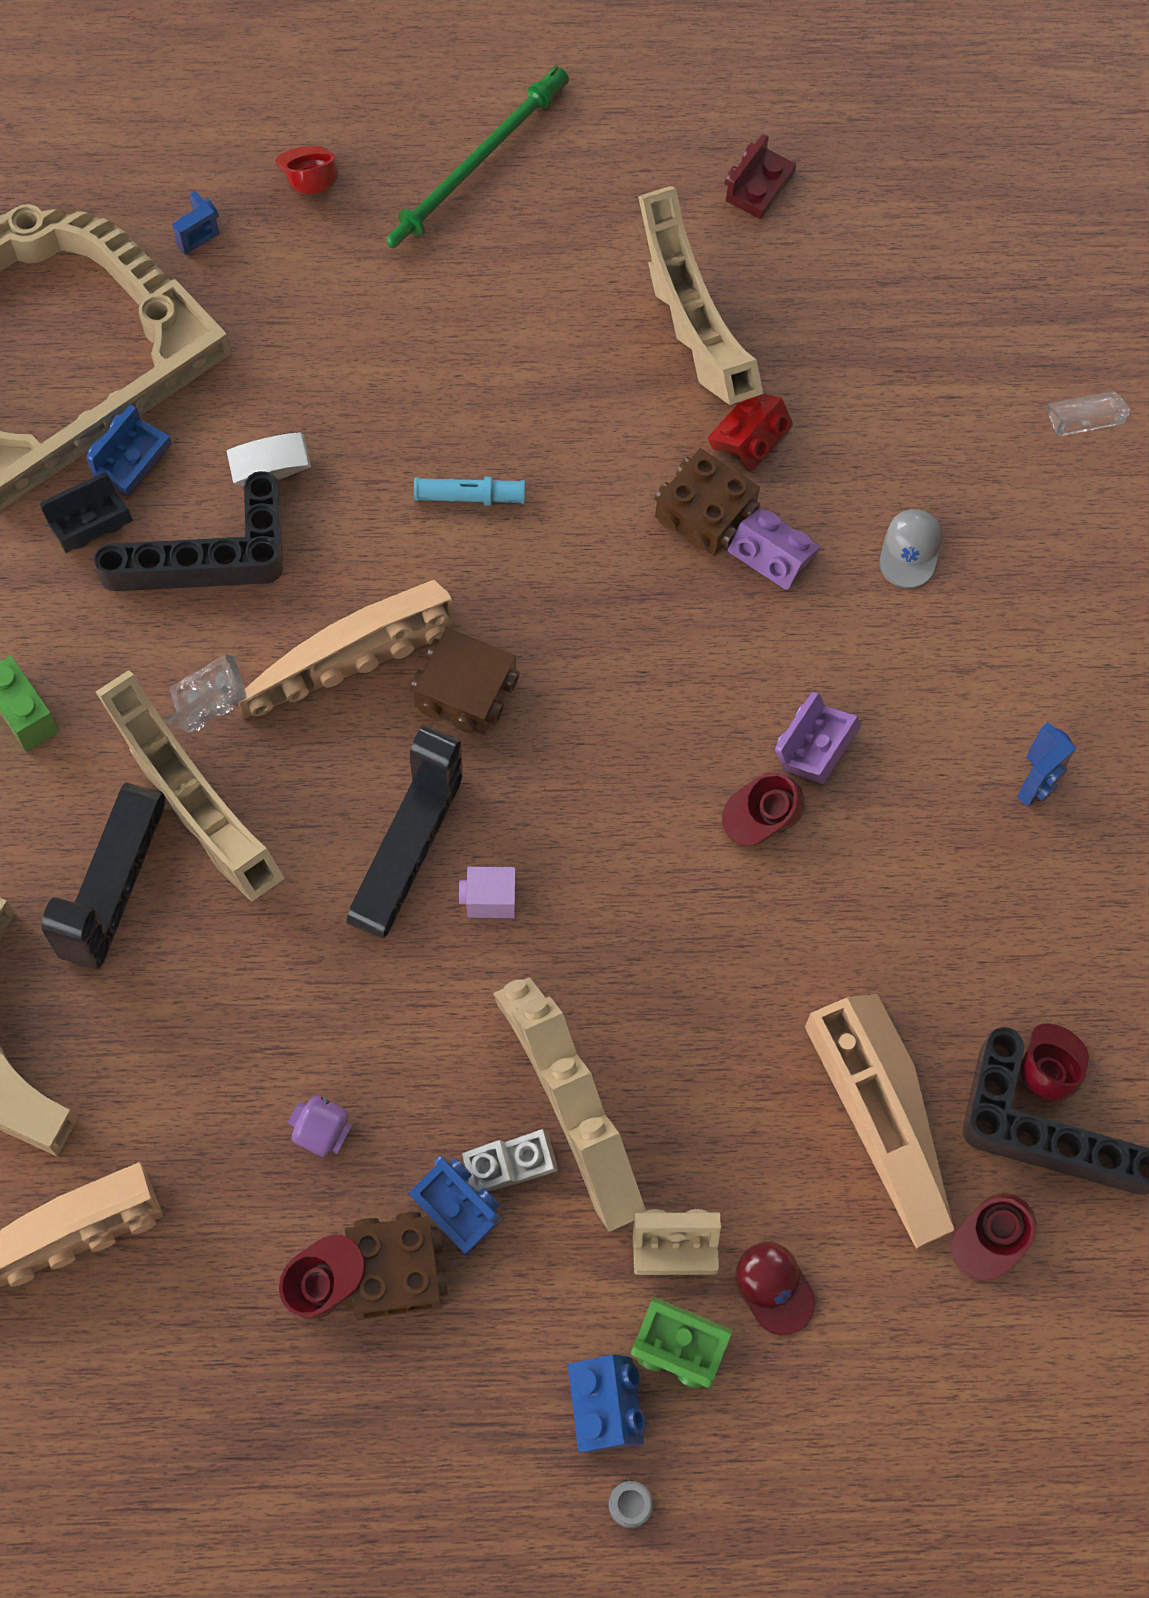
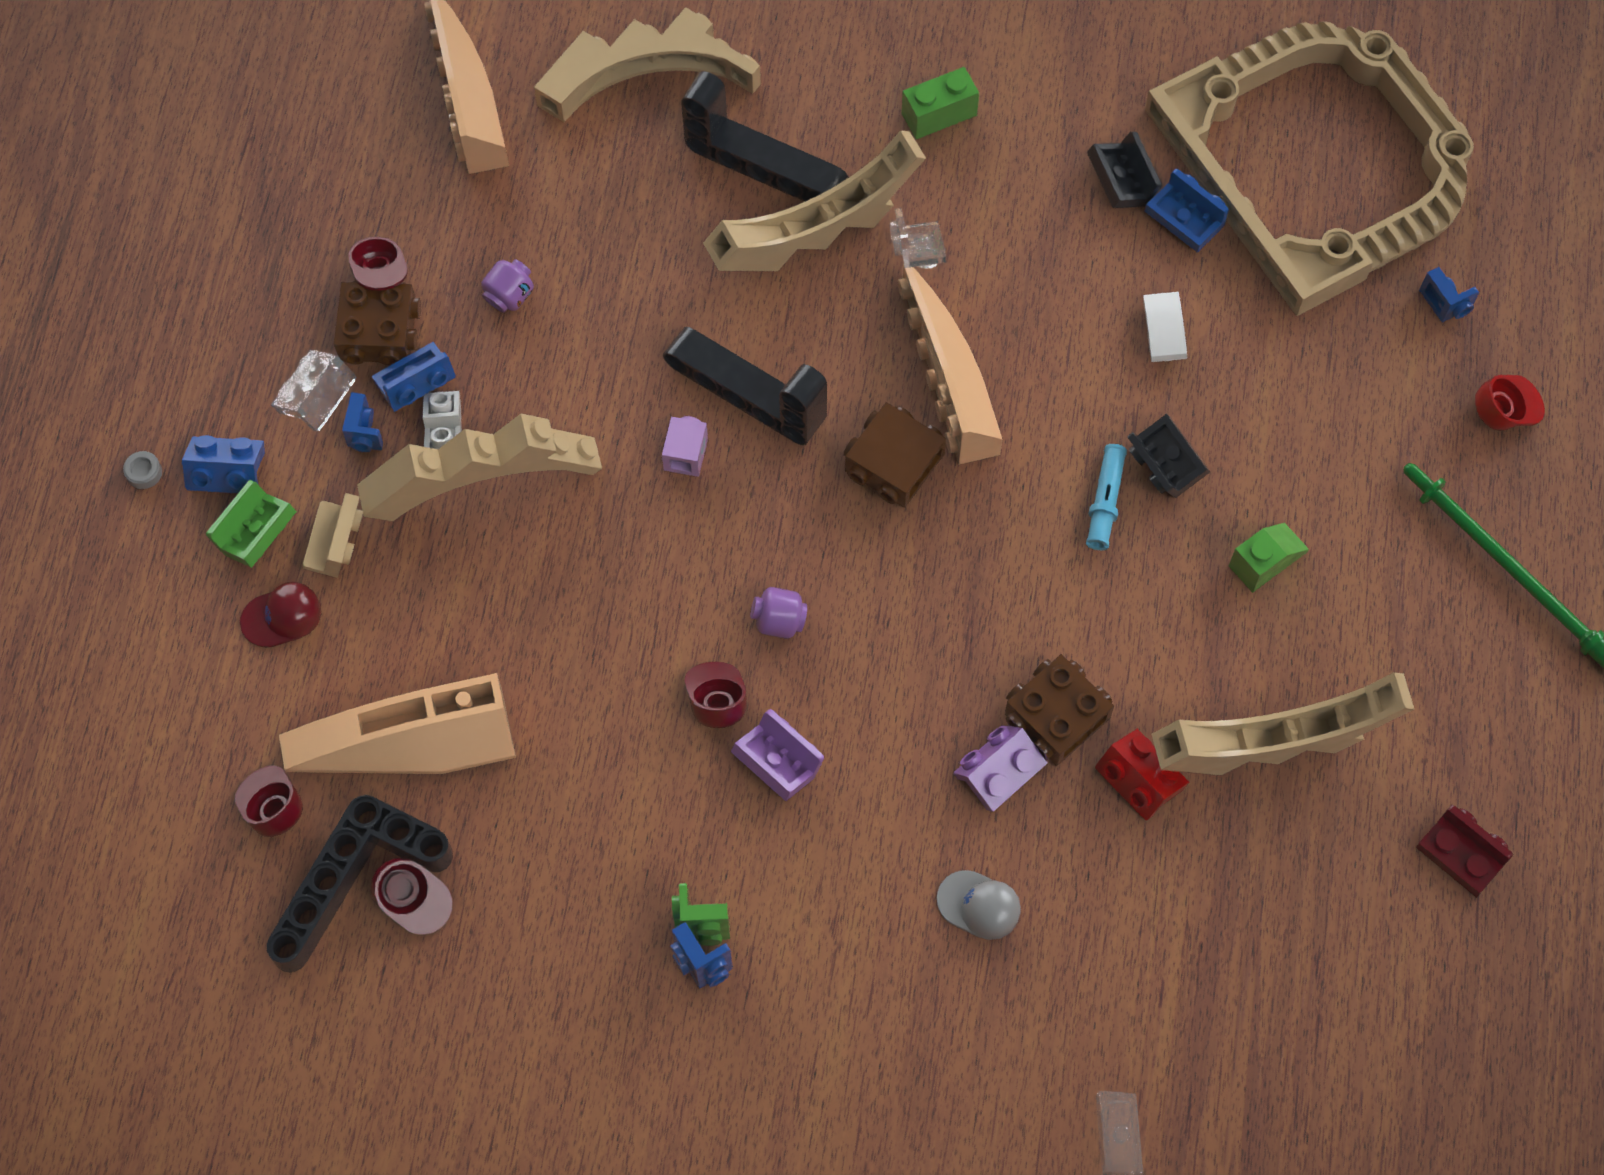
camera: 105 degrees right, 0 degrees up
(205, 552) = (1063, 264): black beam -> none
(415, 439) = (1168, 456): none -> black bracket
(489, 1322) = (315, 389): none -> clear bracket
(507, 348) = (1266, 555): none -> bright green slope
(523, 1256) = (358, 425): none -> blue bracket
(663, 764) = (779, 612): none -> medium lavender head
(1010, 771) = (706, 921): none -> bright green bracket

